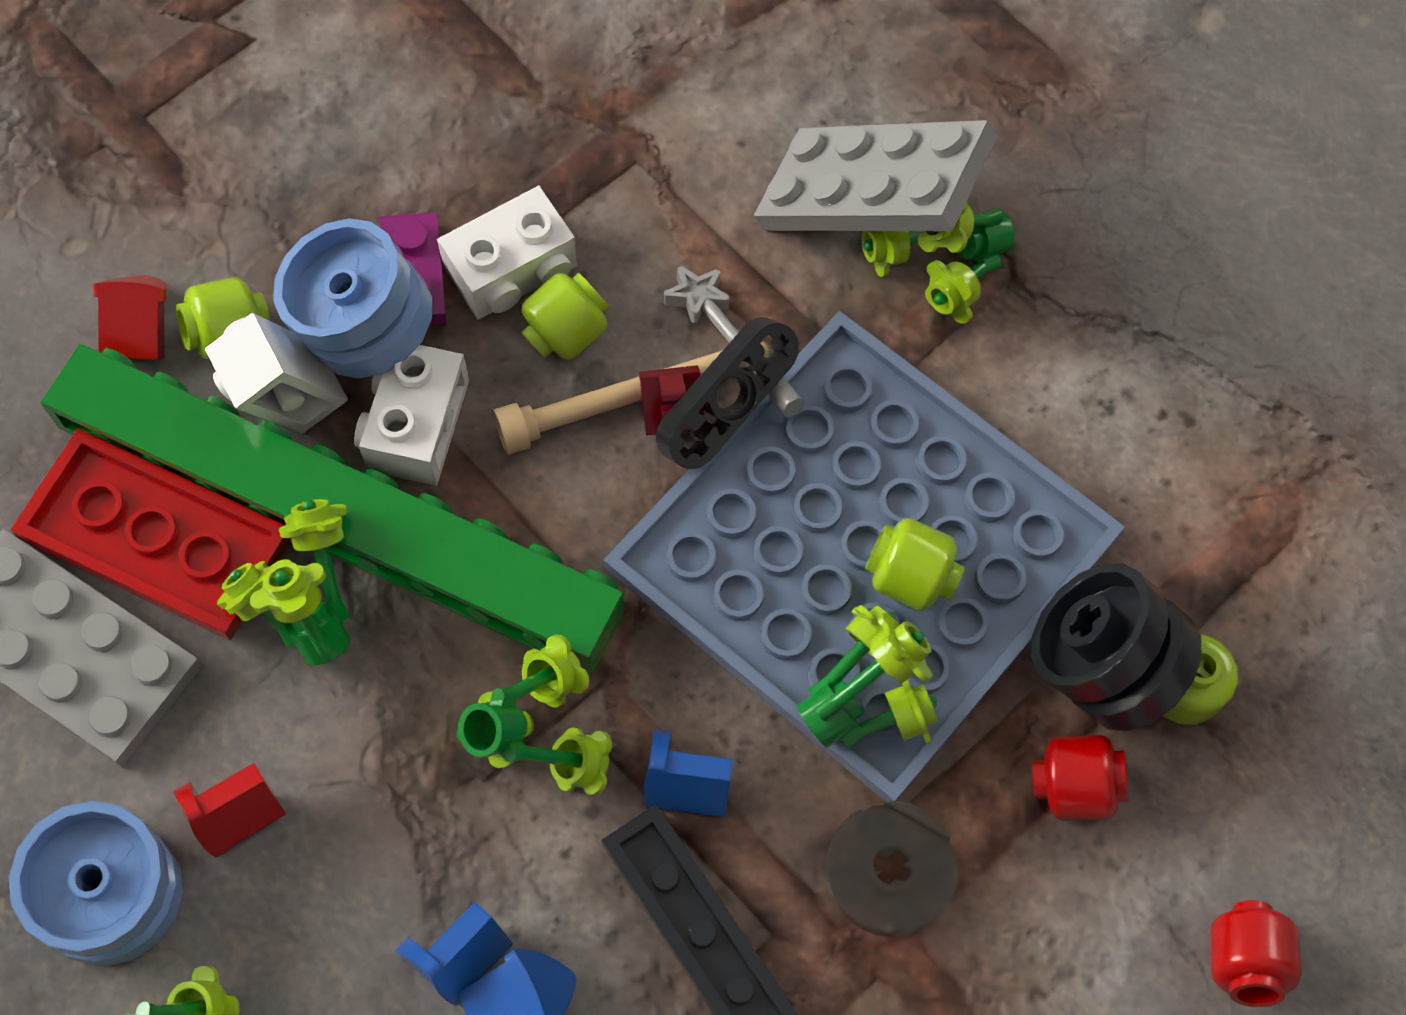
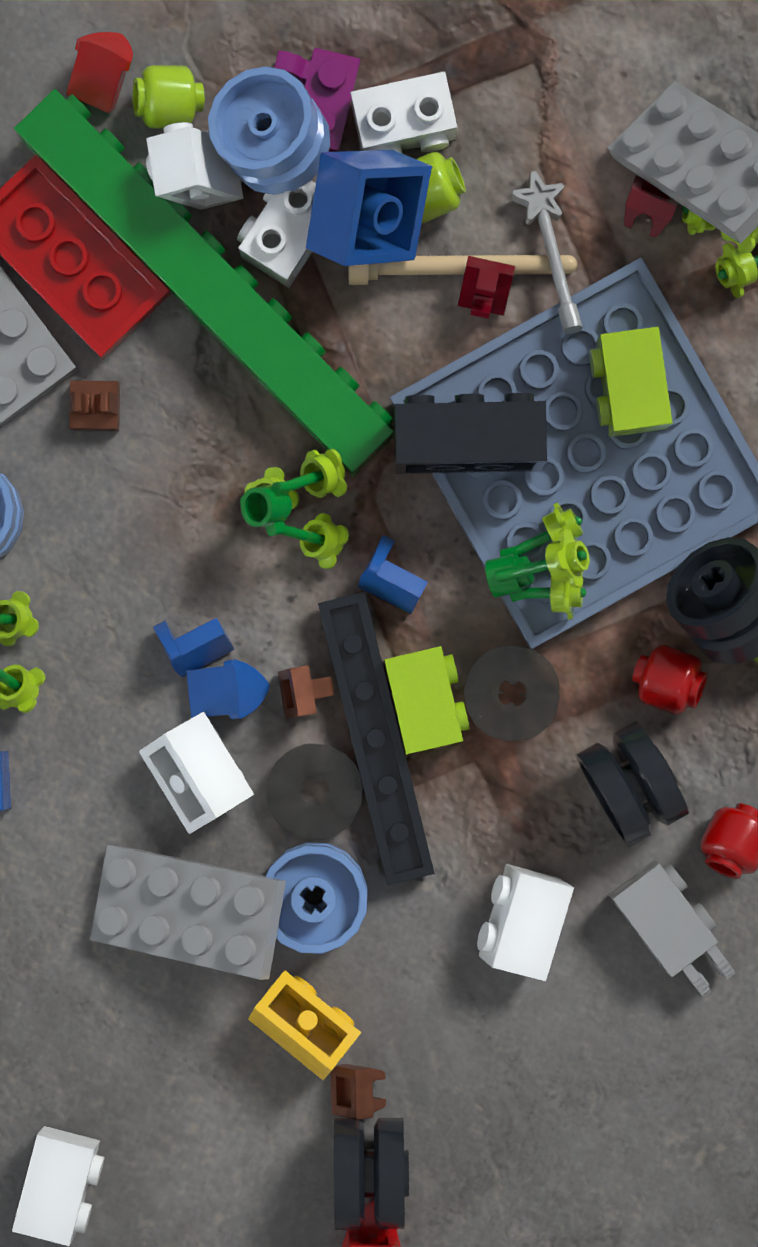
camera: 20 degrees right, 20 degrees up
(229, 809) = (67, 489): red tile -> none
(235, 699) = (94, 405): none -> copper tile
(290, 592) = (158, 360): lime plant -> none
(499, 343) = (368, 207): none -> blue brick
(620, 962) = (300, 691): none -> copper tile
(719, 556) = (470, 435): none -> black brick
(753, 389) = (533, 283): black beam -> none
(786, 914) = (425, 699): none -> lime brick
(839, 251) = (651, 201): none -> dark red tile
(888, 439) = (632, 382): none -> lime brick
(914, 564) = (611, 487): lime head -> none
(1097, 921) = (638, 780): none -> black wheel

